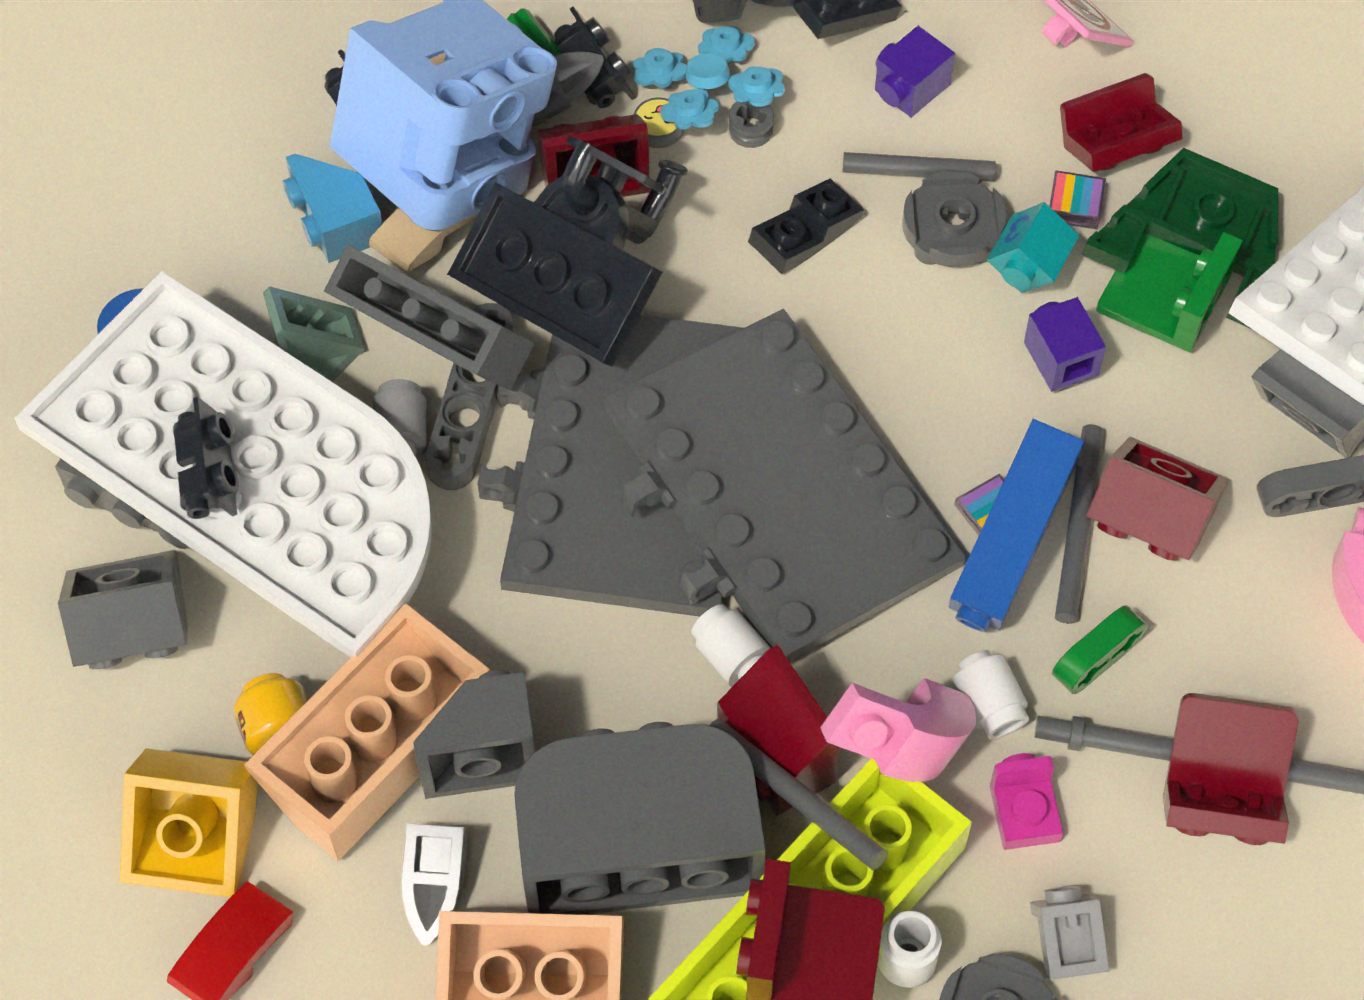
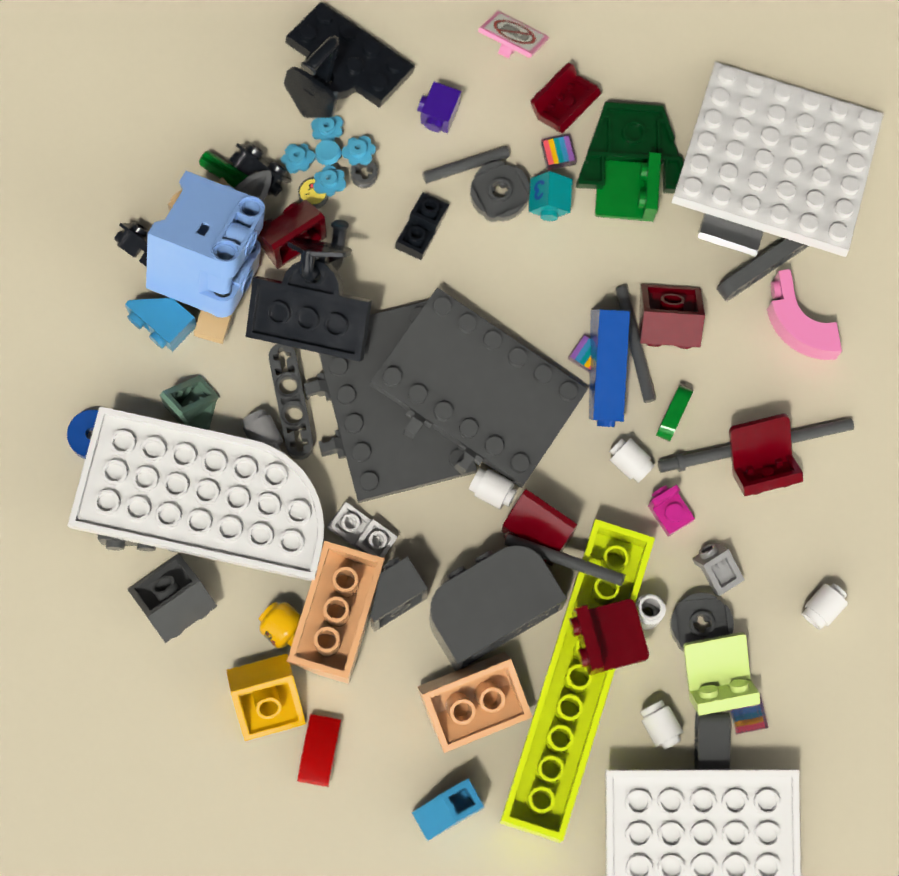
camera: 30 degrees left, 15 degrees up
(205, 440) = (179, 497): black hinge -> none
(429, 317) = (253, 371): dark grey brick -> none
(432, 874) = (400, 671): plate -> none
(481, 627) = (361, 531): none -> white slope
(907, 738) = (609, 505): bright pink arch -> none
(1064, 343) = (589, 246): dark purple brick -> none

